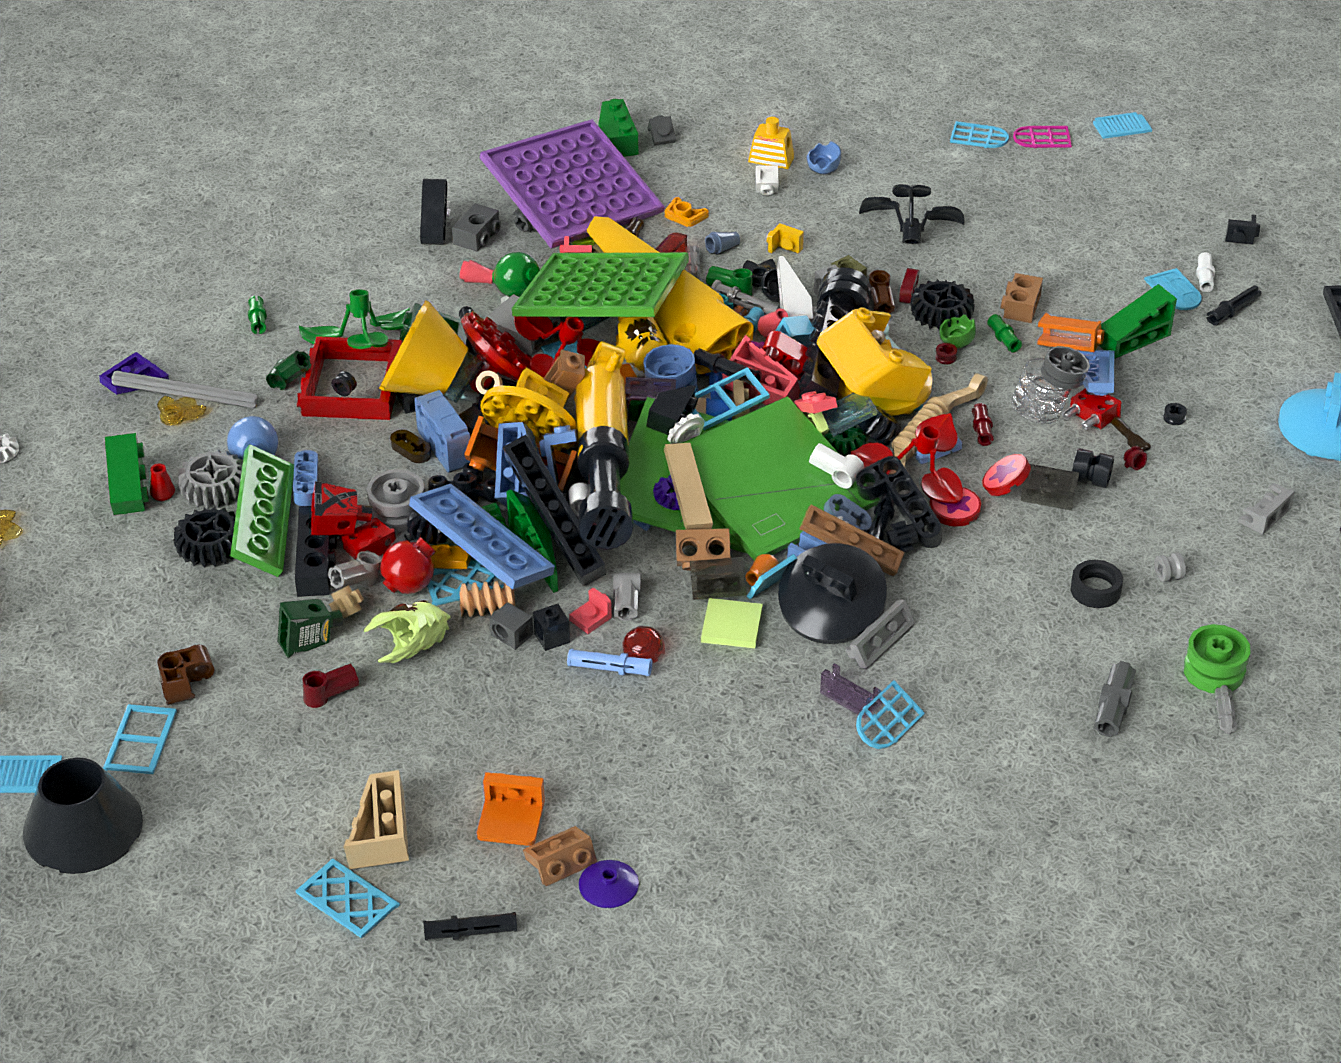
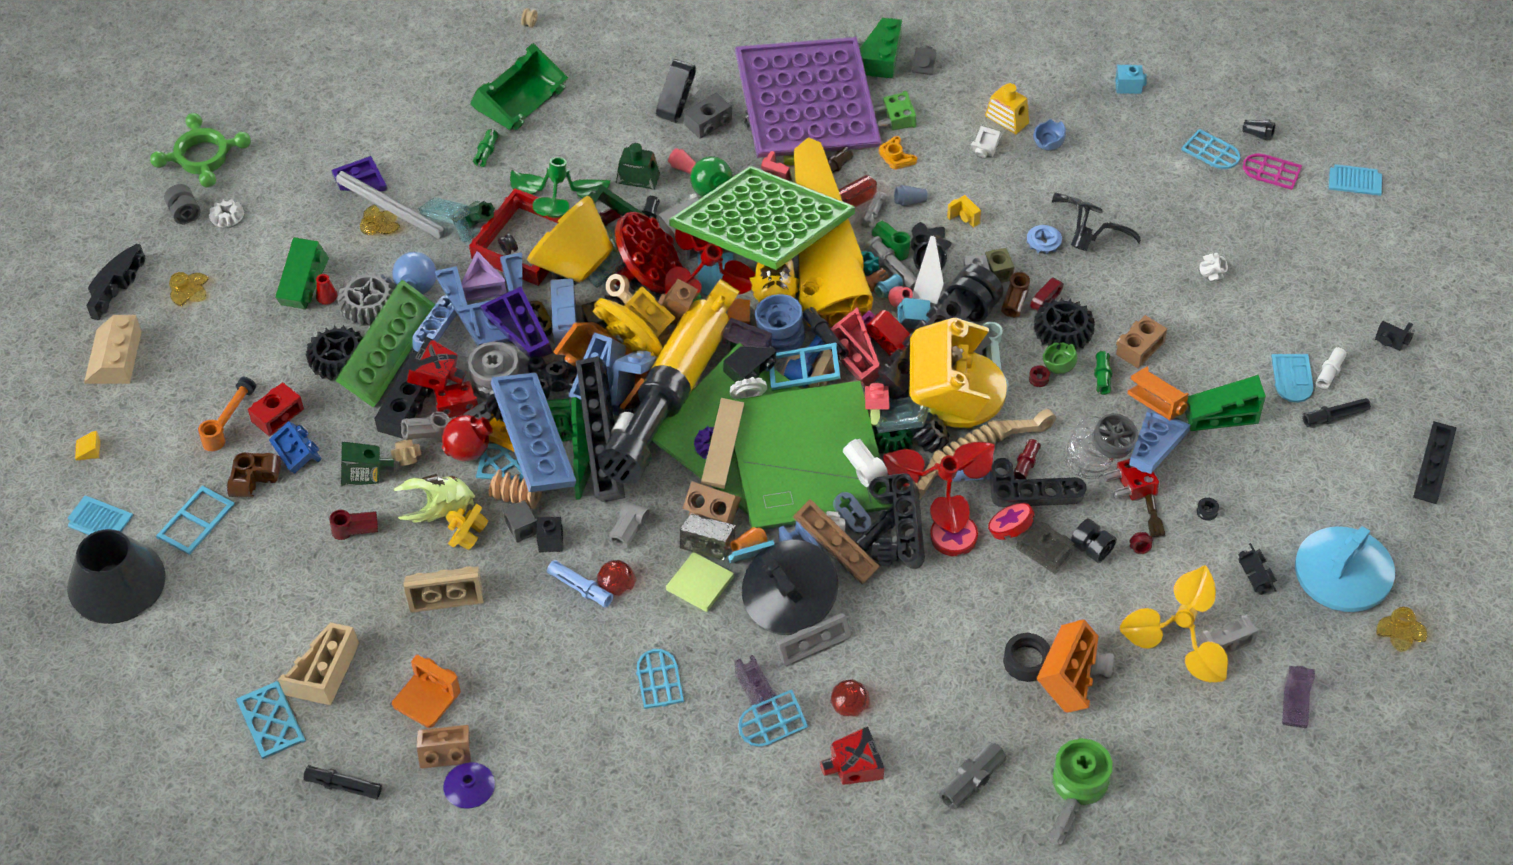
camera: 25 degrees right, 10 degrees up
(113, 646) = (212, 430): none -> orange piece
(172, 606) = (275, 409): none -> red brick
(215, 634) = (294, 446): none -> blue bracket
(231, 193) = (529, 17): none -> tan bush
(257, 375) = (449, 212): none -> clear light blue piece
(264, 253) = (520, 89): none -> green windscreen
(333, 426) = (482, 280): none -> lavender slope
(359, 458) = (472, 316): none -> medium blue wing
(401, 446) = (518, 322): none -> dark purple wedge
(434, 284) = (638, 167): none -> dark green torso
(455, 648) = (472, 519): none -> yellow hips
(470, 710) = (443, 589): none -> tan slope
(593, 612) = (593, 531): coral bracket -> none
(665, 177) = (898, 110): none -> bright green piece
(744, 731) = (653, 688): none -> medium azure window
(867, 96) = (1130, 79): none -> medium azure brick
(879, 242) = (1050, 233): none -> light blue gear
(950, 673) = (850, 698): none -> clear red hair
(994, 722) = (854, 759): none -> torso
(1011, 106) = (1260, 128): none -> black cone
(1025, 440) = (1036, 486): none -> black beam
(1047, 221) = (1213, 266): none -> white gear
(1145, 573) = (1069, 664): none -> orange wedge
(1227, 464) = (1196, 593): none -> yellow plant
(1264, 452) = (1262, 578): none -> black hinge

